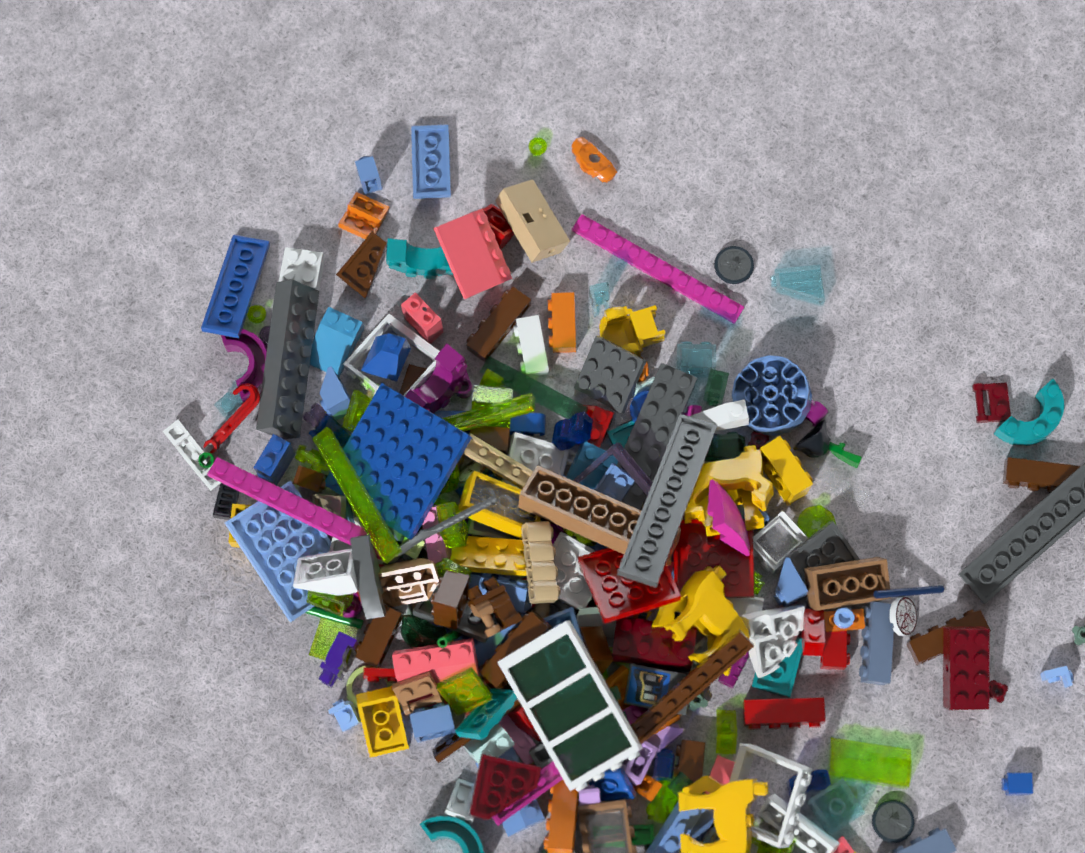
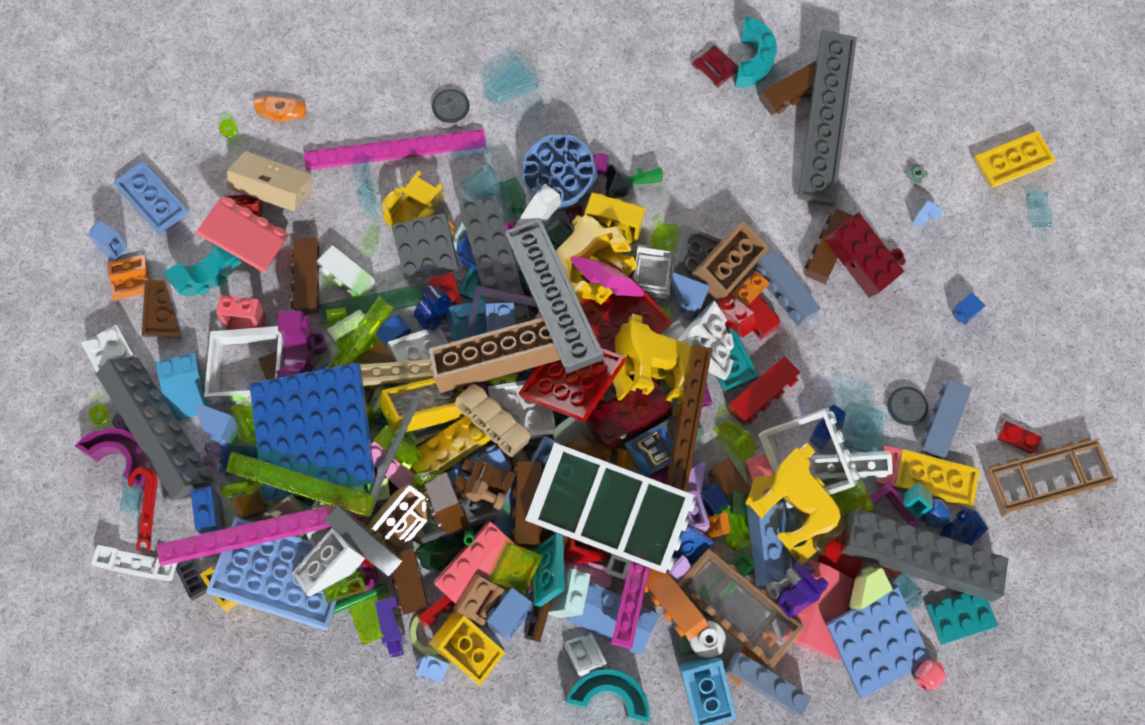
camera: 45 degrees left, 5 degrees down
(203, 457) = (144, 557): green hinge -> none
(235, 286) = (63, 404): blue plate -> none
(387, 356) = (236, 362): blue slope -> none
(500, 785) = (608, 614): dark red plate -> none
(562, 322) = (355, 238): orange brick -> none
(843, 618) = (750, 286): light blue tile -> none
(869, 763) = (856, 377): clear neon green slope -> none
(903, 616) = (787, 254): white tile -> none
(908, 591) = (779, 232): dark blue bar -> none

